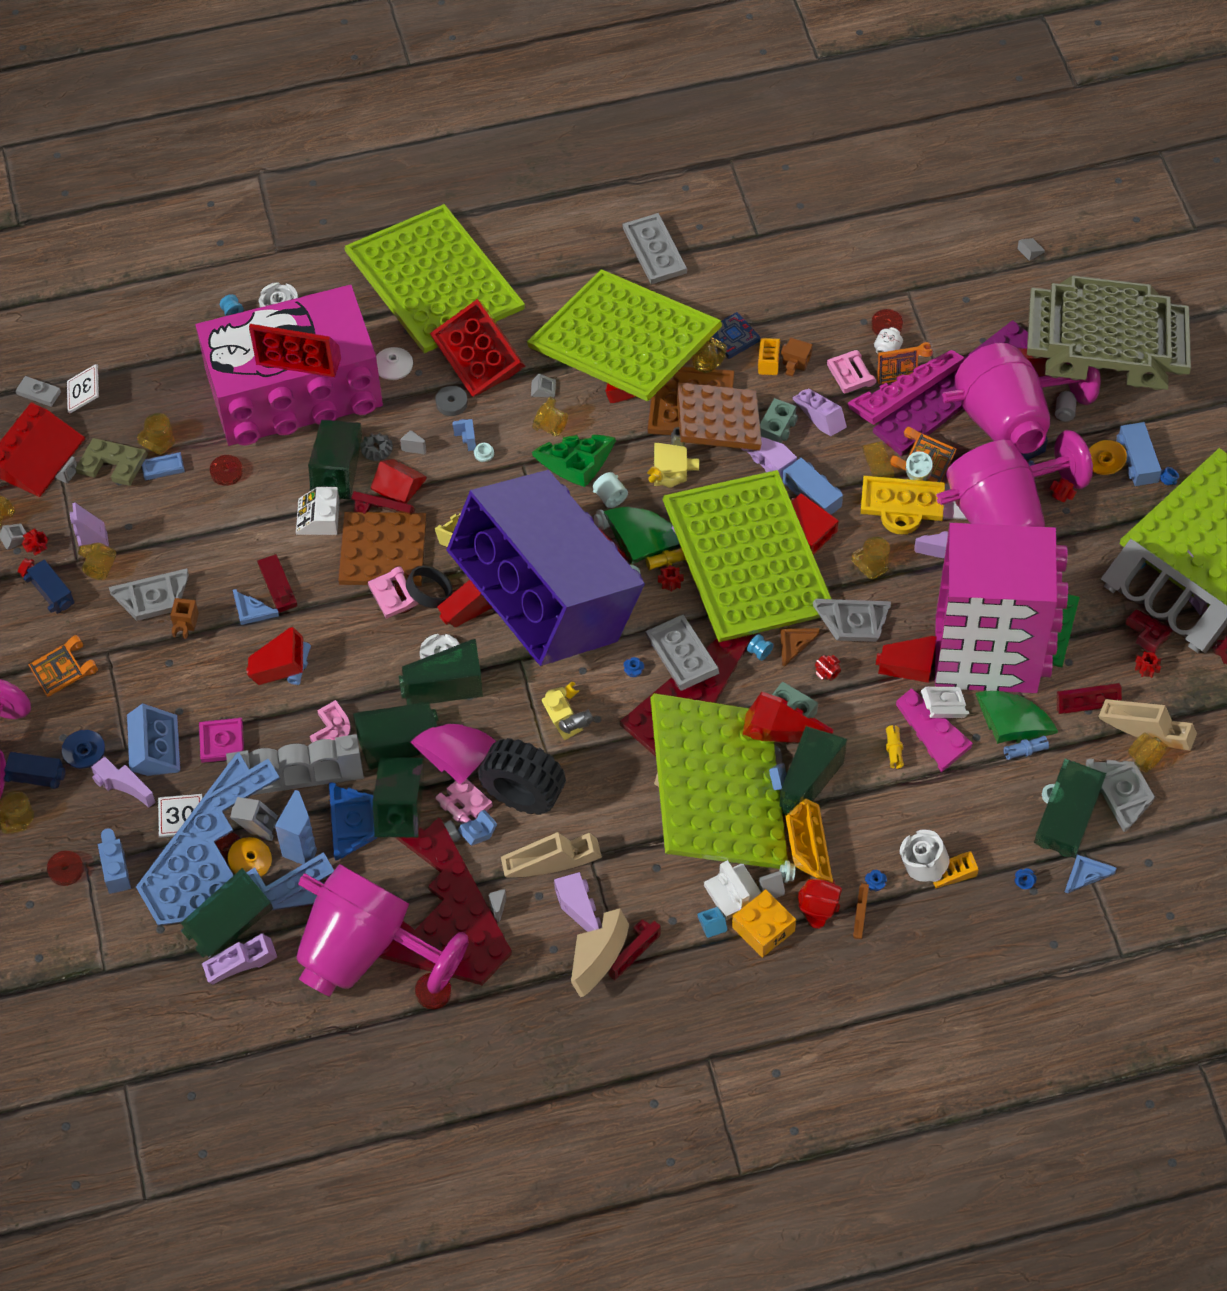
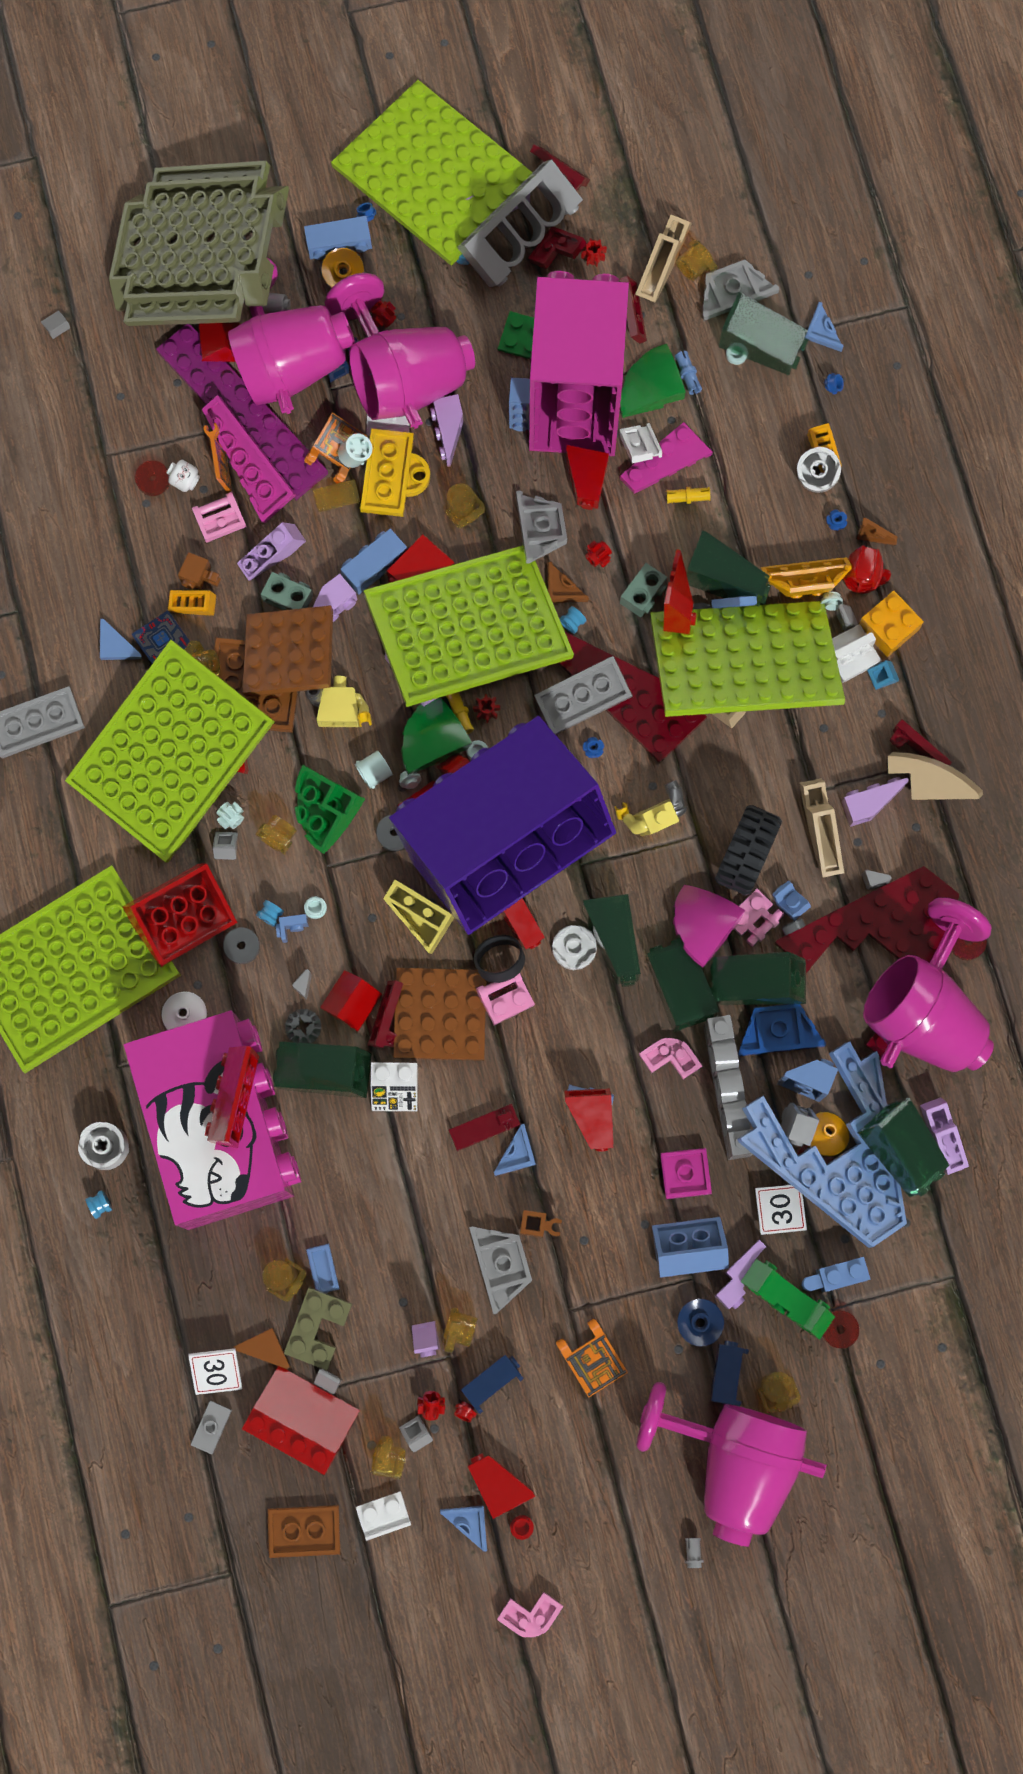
camera: 90 degrees left, 20 degrees up
(99, 427) = (266, 1348): none -> dark orange tile
(107, 806) = (785, 1297): none -> green brick
(228, 477) = (320, 1191): clear red piece -> none
(479, 417) = (270, 913): none -> dark azure wheel
(568, 385) = (230, 815): none -> light aqua gear
(728, 301) = (114, 646): none -> medium blue tile

